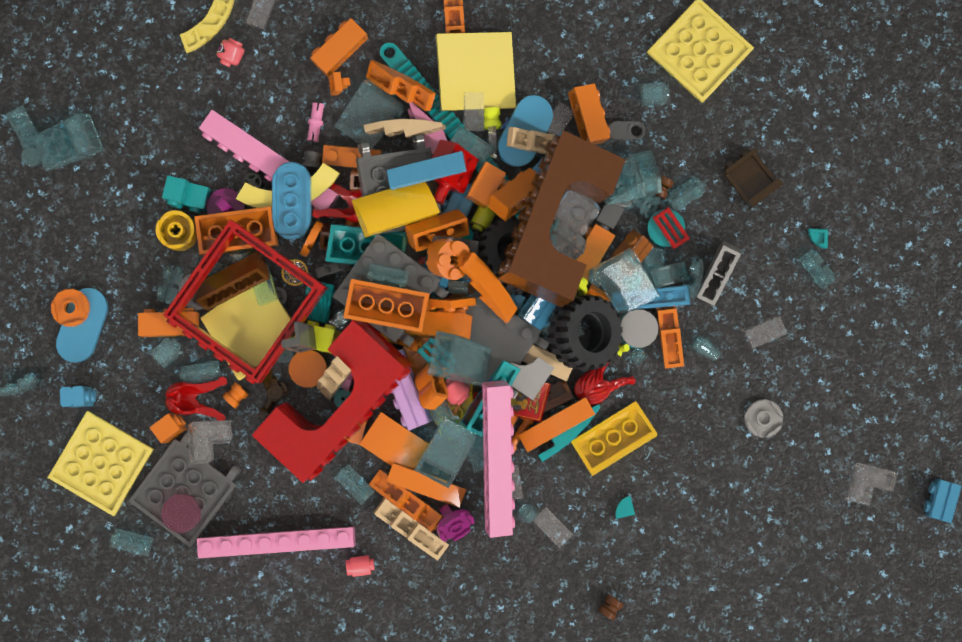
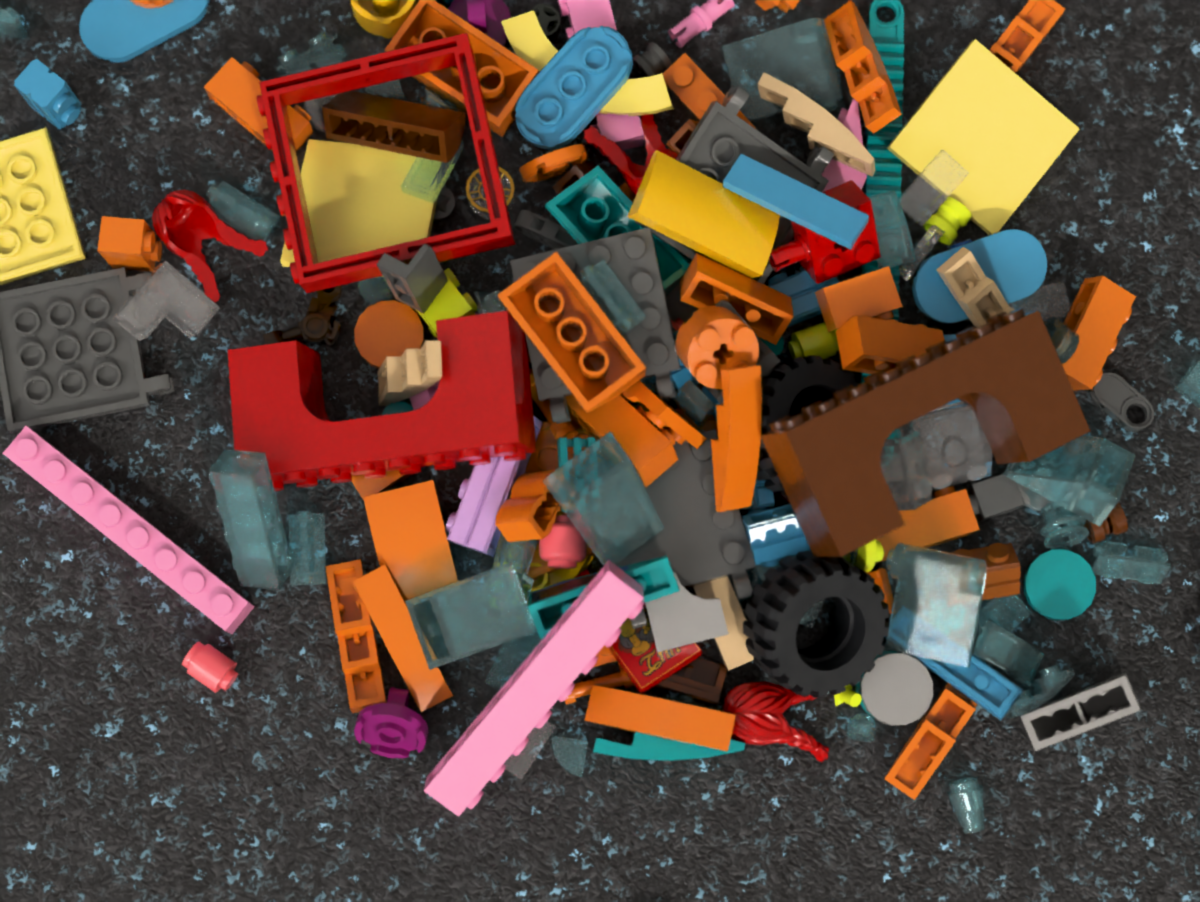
camera: 35 degrees right, 5 degrees down
(167, 352) = (222, 144): clear light blue brick -> none
(181, 513) = (38, 373): clear pink tile -> none
(235, 395) = (259, 282): orange wheel -> none
(322, 309) = (485, 268): teal brick -> none
(324, 493) = (251, 519): none -> clear light blue brick
(410, 529) = (326, 681): tan slope -> none
(527, 513) = (507, 806): clear light blue plate -> none
(533, 470) = (570, 754): none -> clear light blue tile
(552, 527) = (524, 859): clear tile -> none
(579, 128) = (1063, 338): none -> clear light blue tile
(614, 438) = (724, 812): yellow slope -> none
(664, 231) = (1062, 620): red tile -> none
(765, 332) = (1073, 858): clear tile -> none

